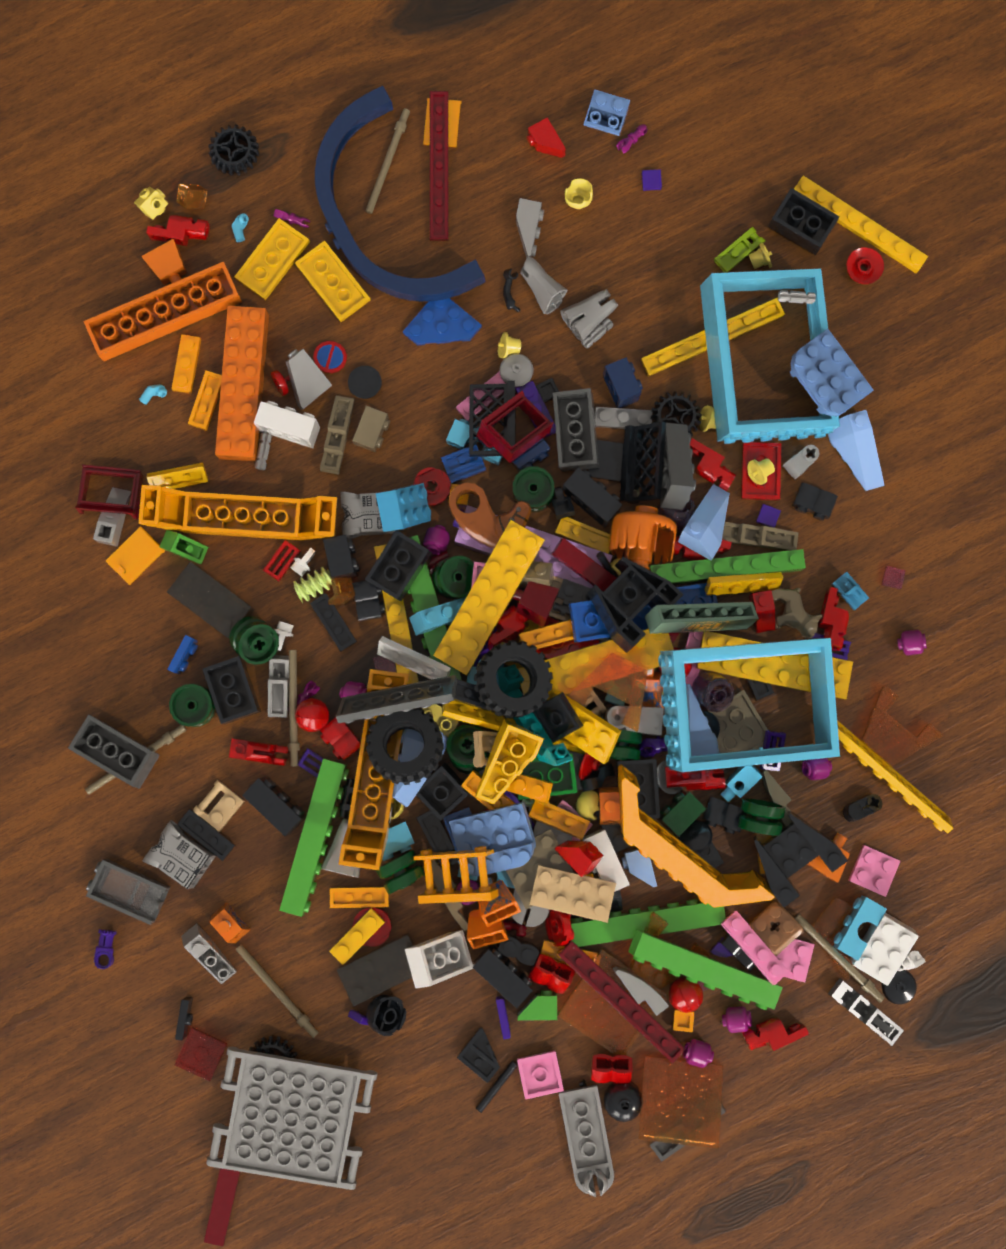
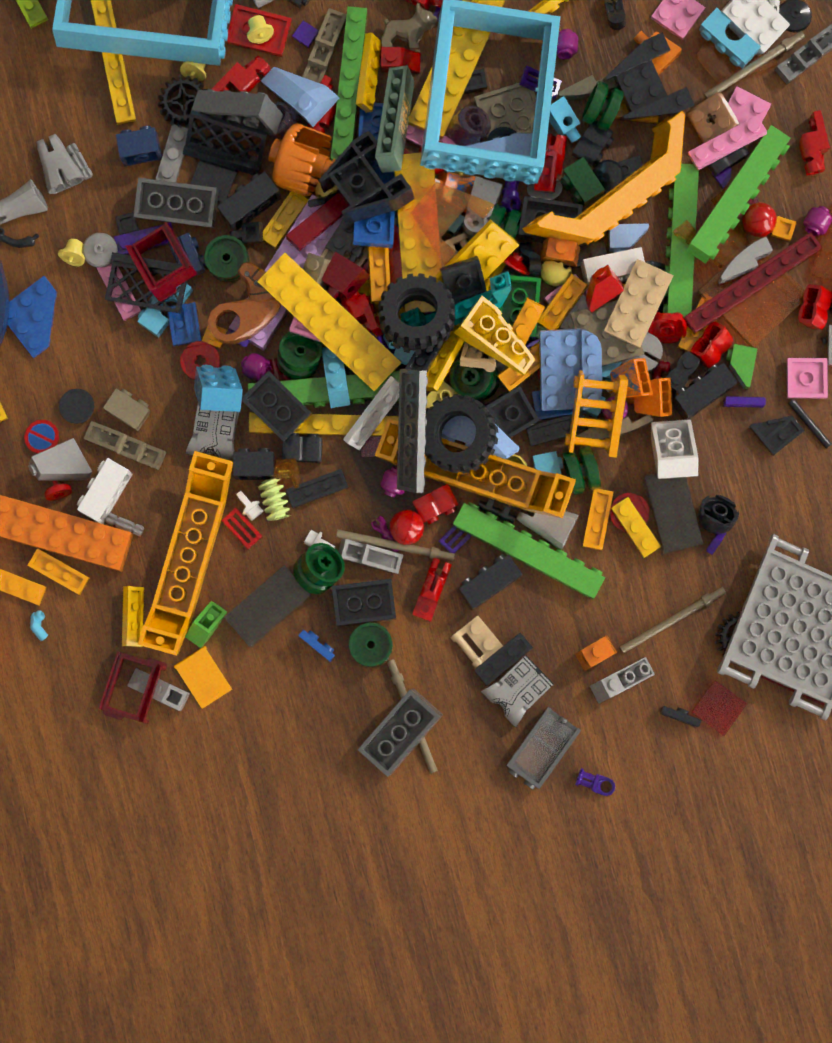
camera: 75 degrees left, 0 degrees up
(737, 1019) = (793, 176): magenta head -> none

